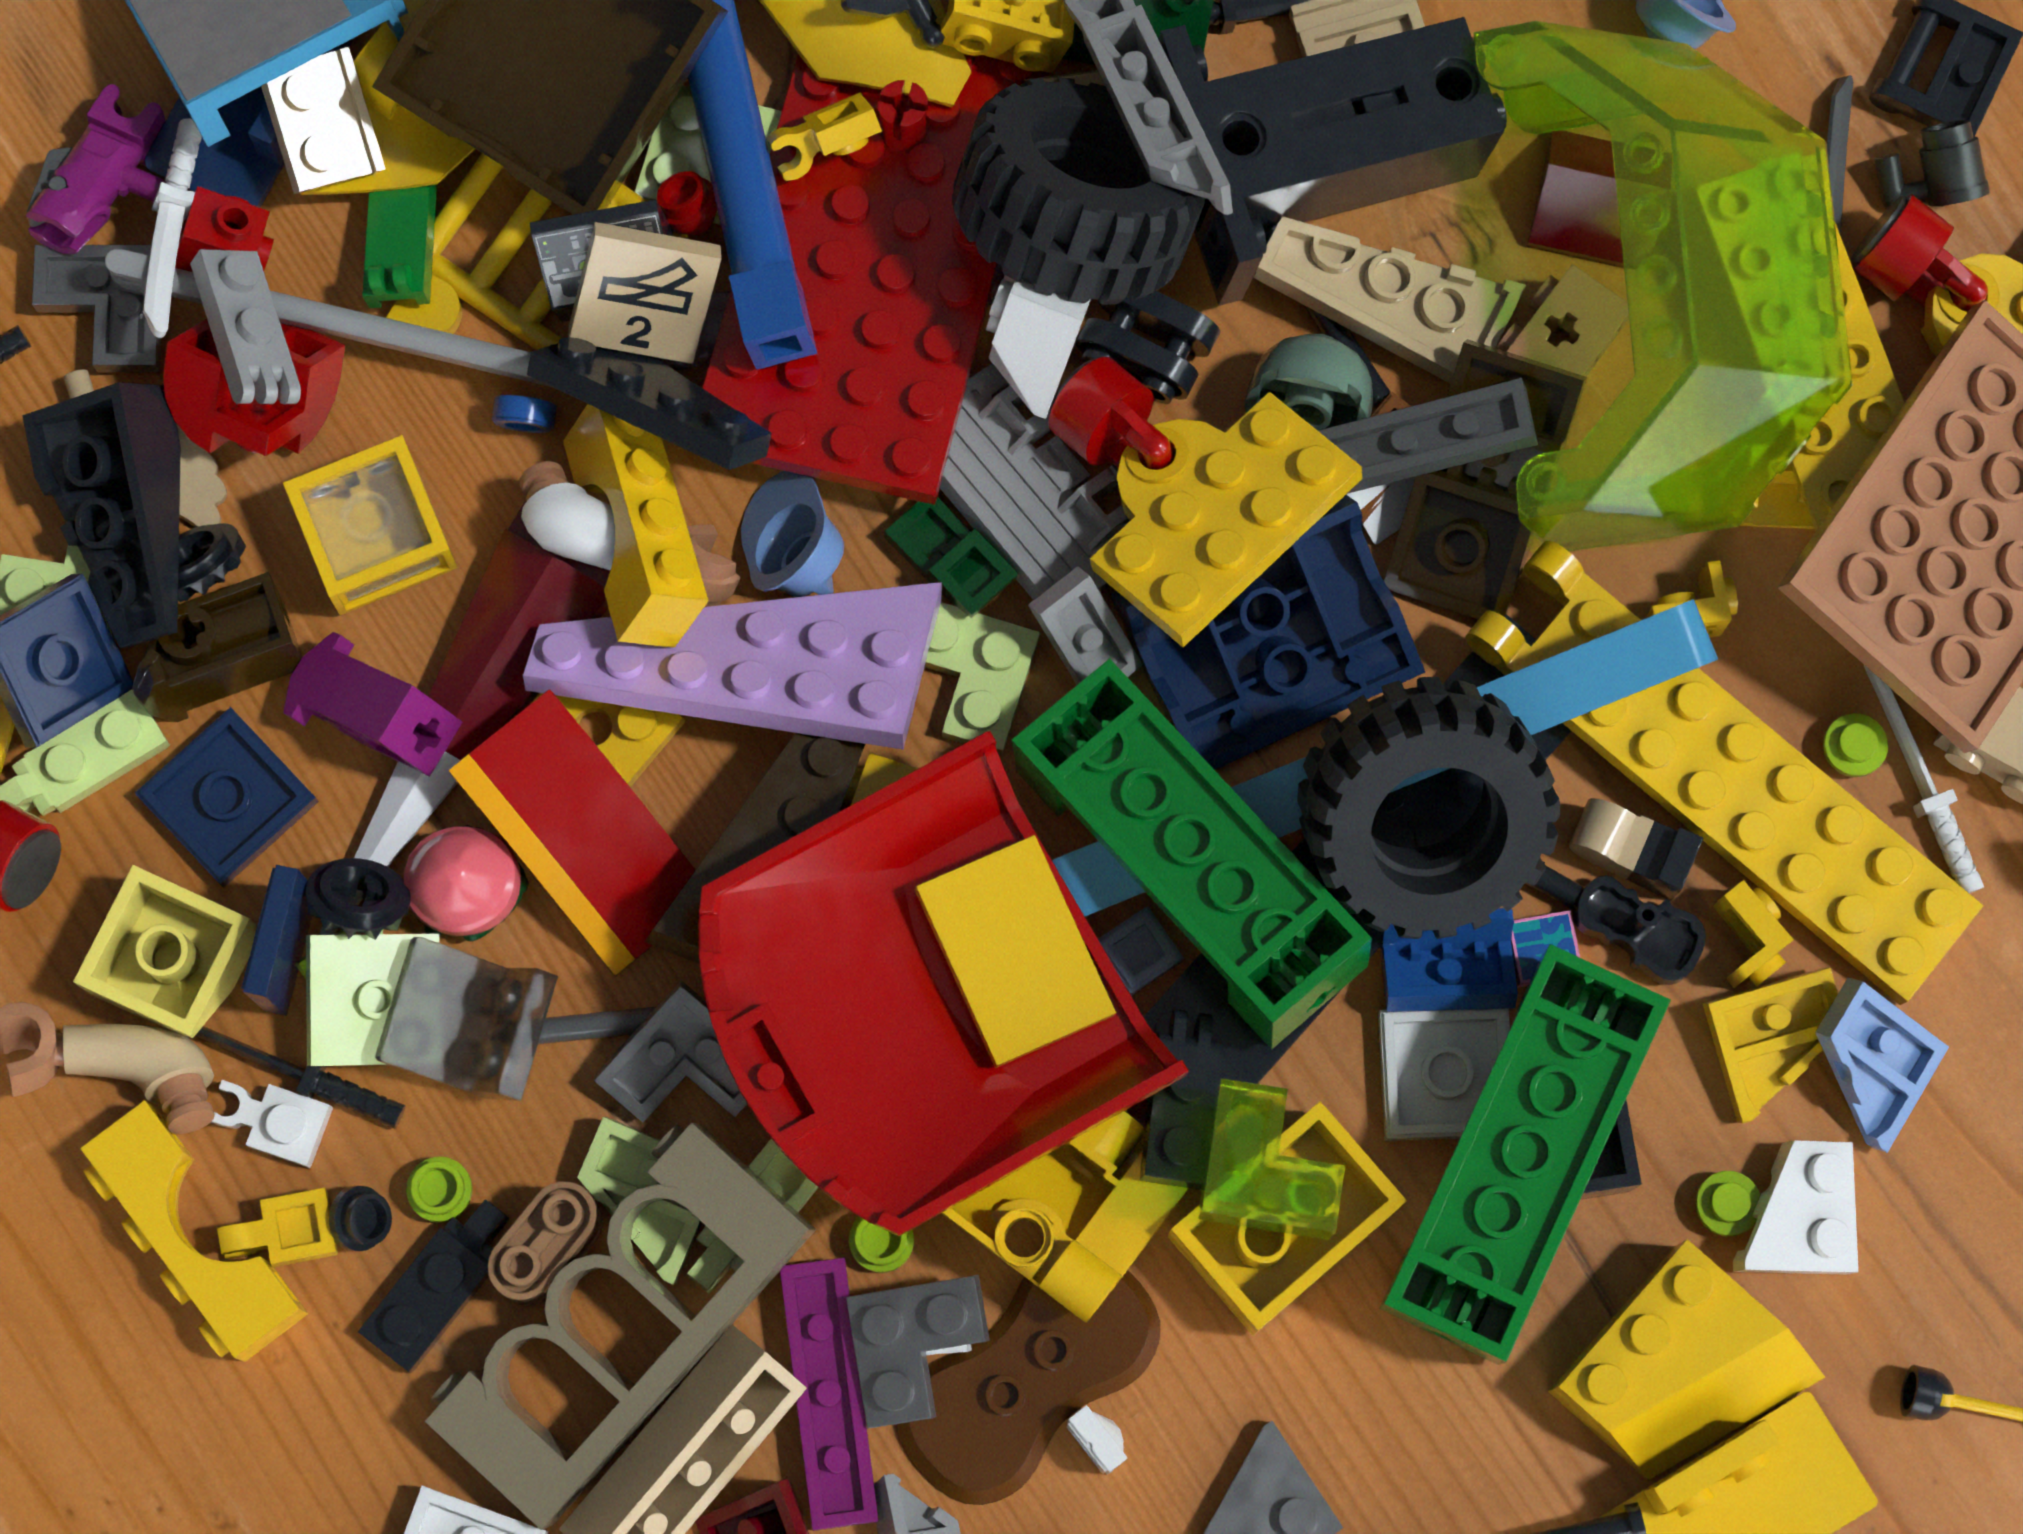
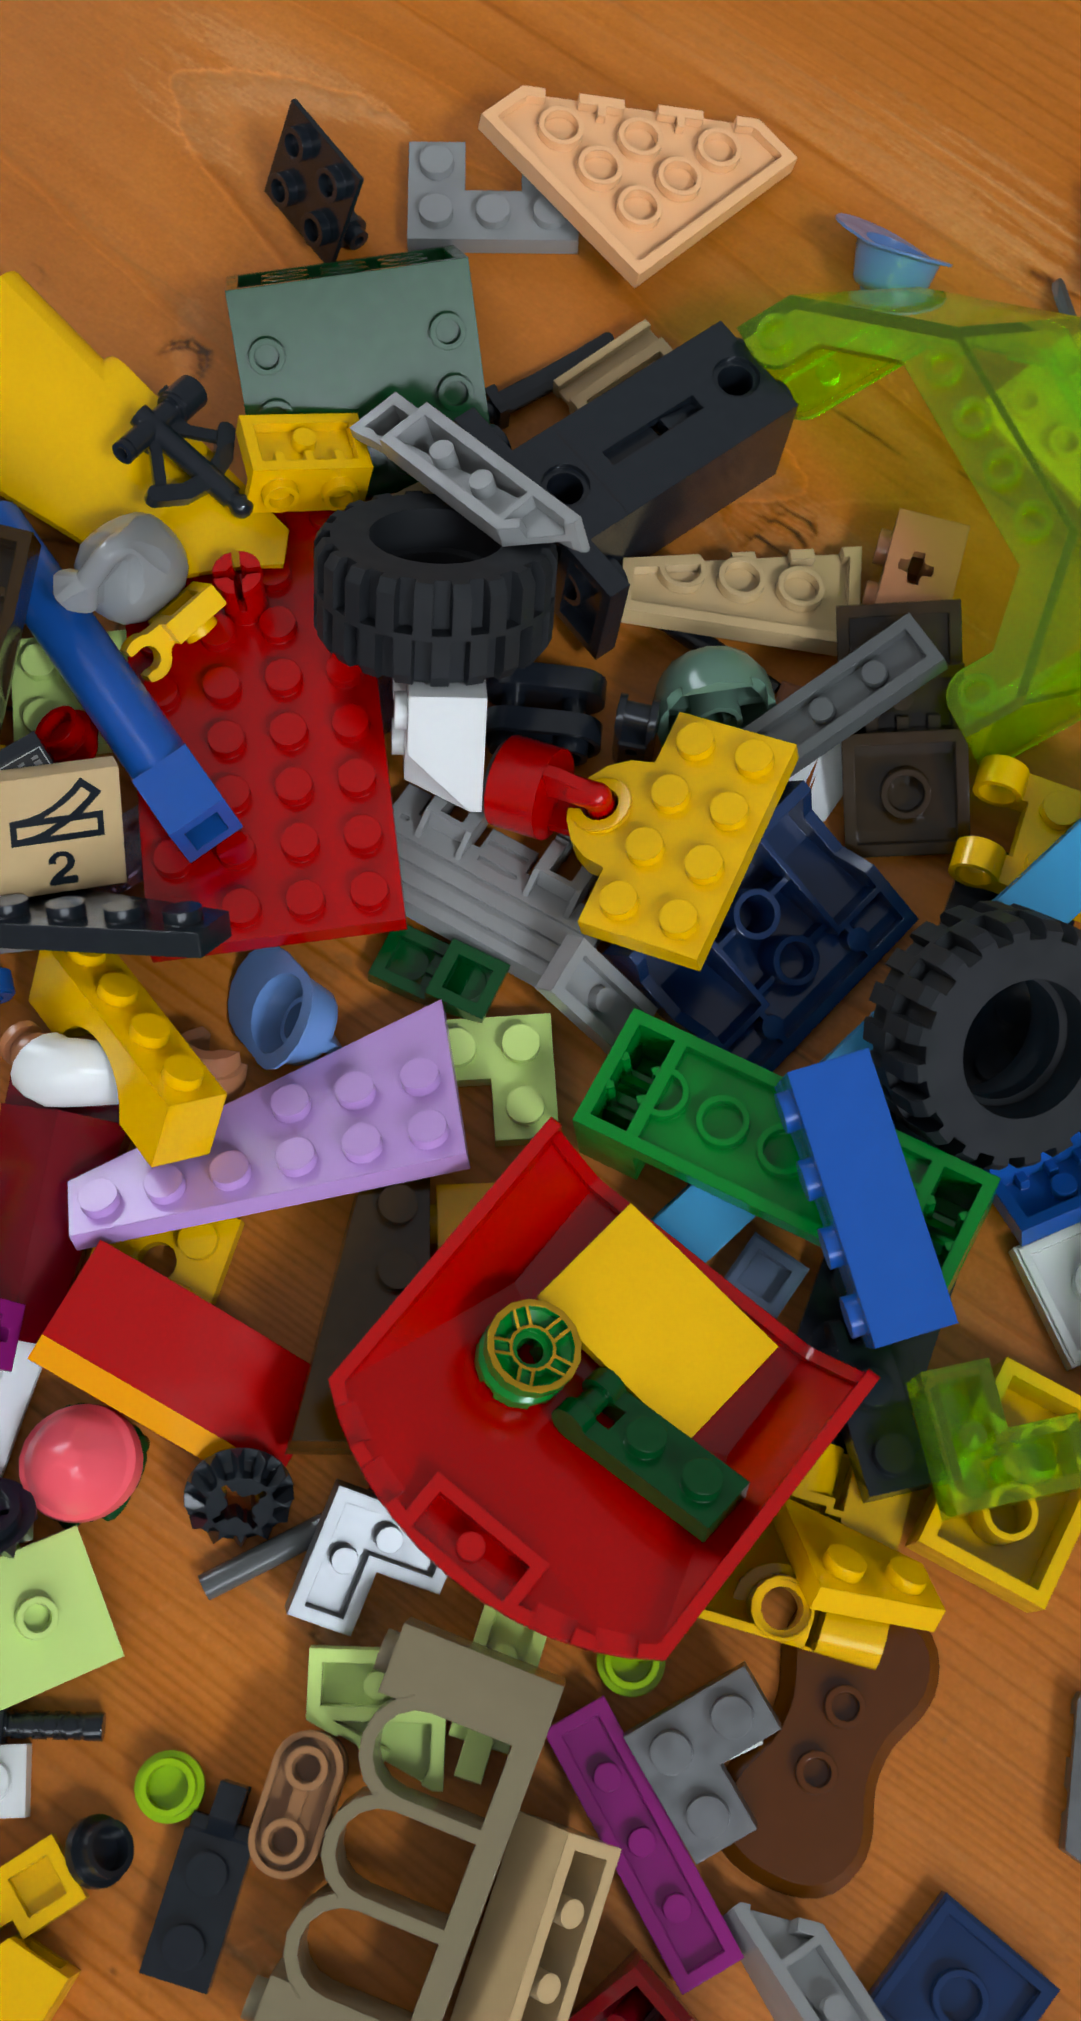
camera: 20 degrees left, 5 degrees down
(465, 1020) = (134, 1604): clear smoke bracket -> none
(605, 946) = (247, 1473): none -> black gear
(798, 62) = (124, 570): none -> light grey piece
(913, 935) = (553, 1348): none -> green wheel
(961, 1061) = (650, 1454): none -> dark green plate
(1098, 1438) = (926, 1780): white tile -> none
(1102, 1233) = (855, 1574): none -> yellow wing
(1223, 394) = (635, 730): none -> black bar
(1232, 908) = (864, 1200): none -> blue wedge
(1578, 200) = (891, 457): dark red slope -> none

